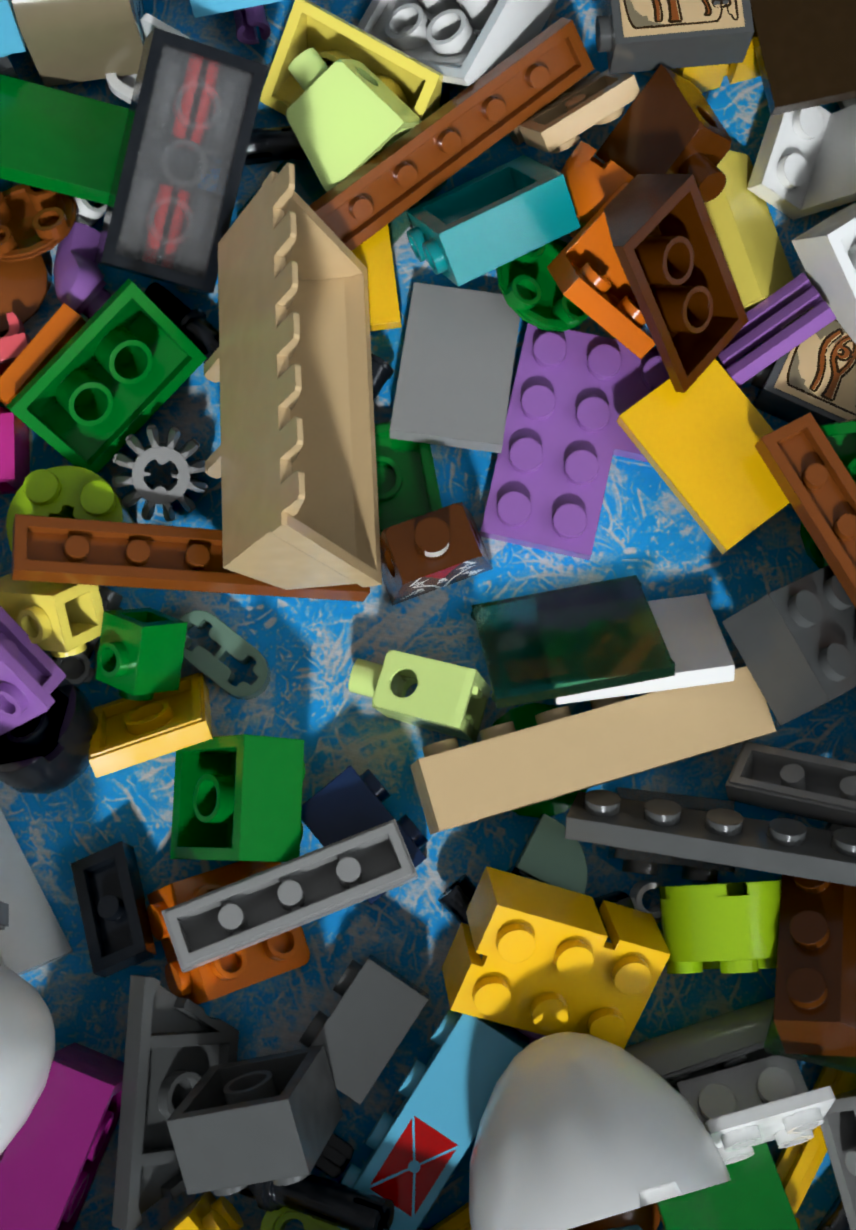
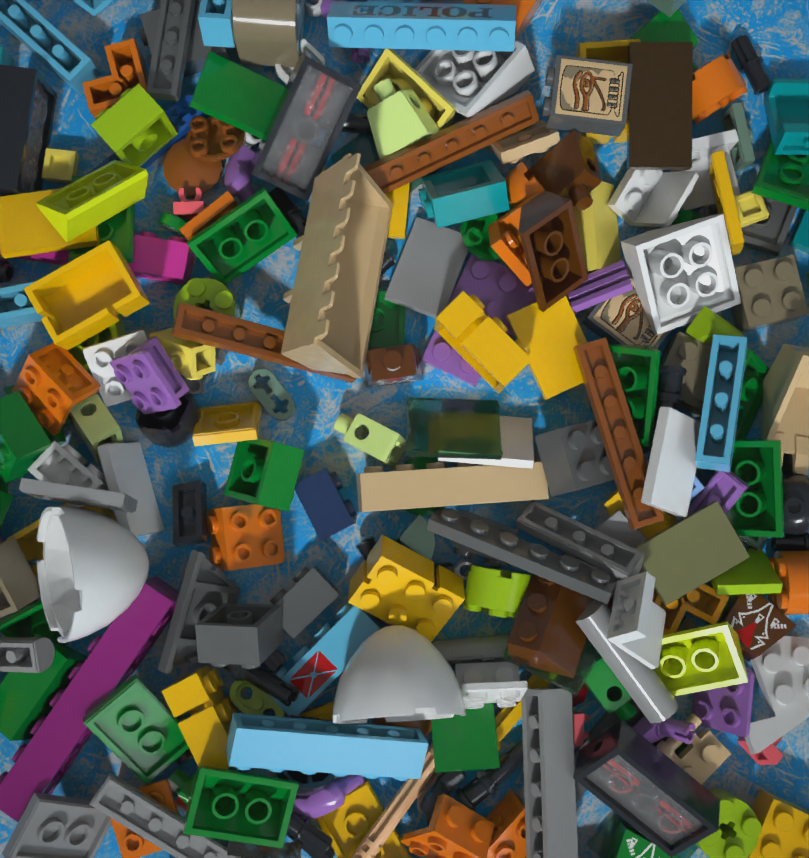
camera: 10 degrees right, 5 degrees up
(141, 652) = (230, 385): green brick -> none
(159, 492) = (256, 302): light grey gear -> none
(289, 895) = (279, 527): light grey brick -> none
(587, 468) = (482, 341): none -> yellow piece

